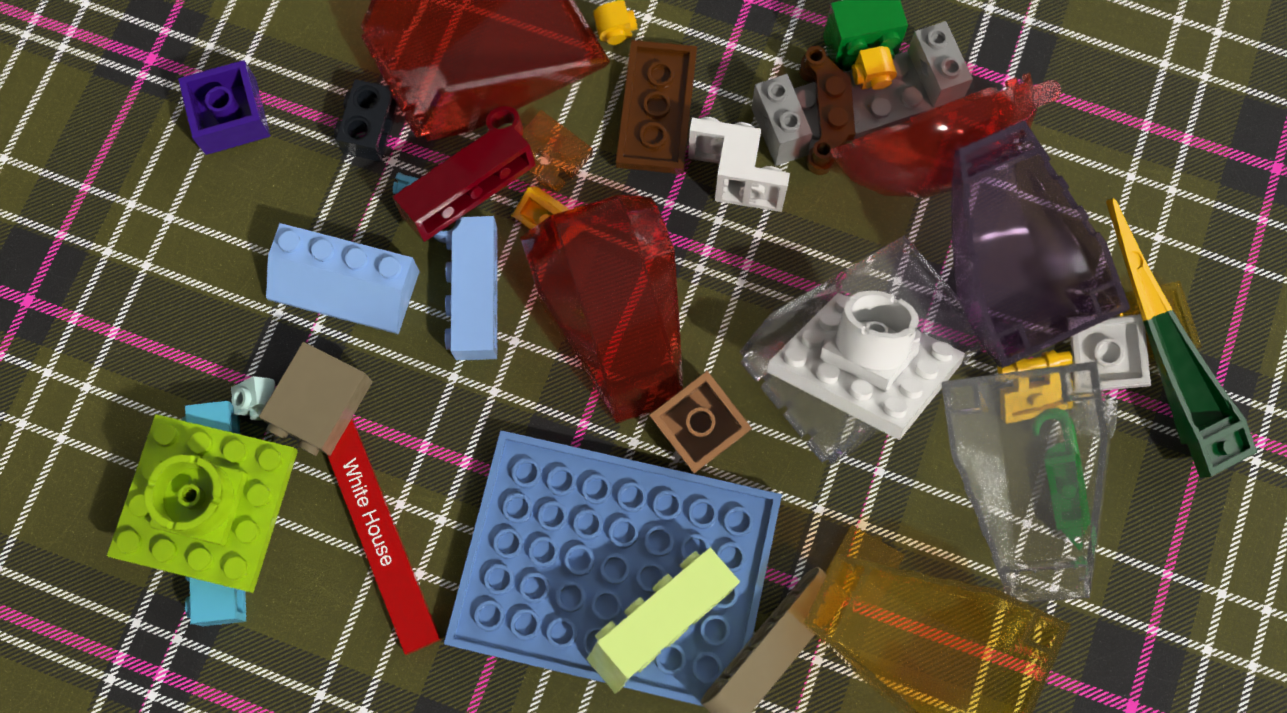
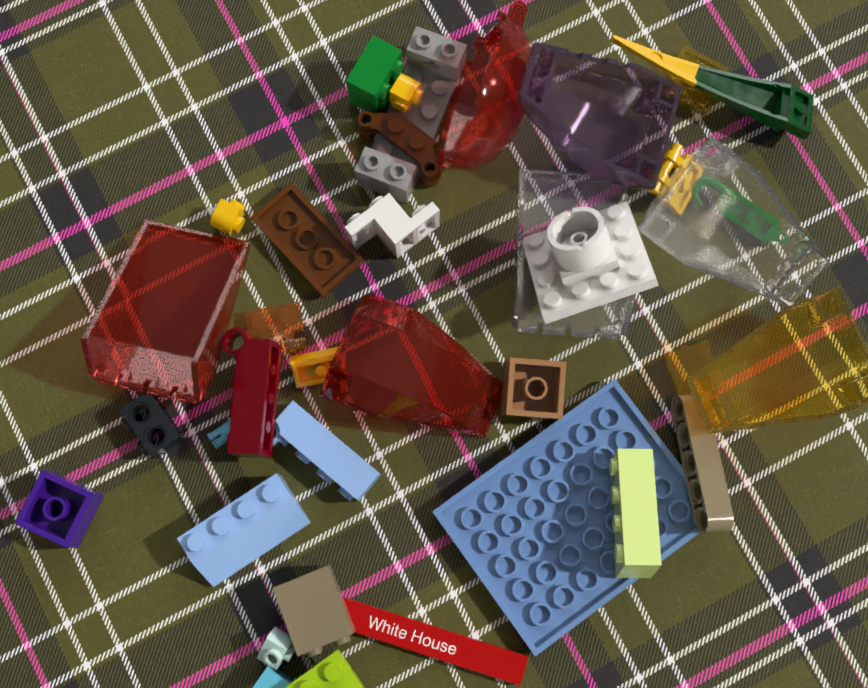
camera: 50 degrees left, 5 degrees up
(1119, 350) = (696, 119): white tile -> none

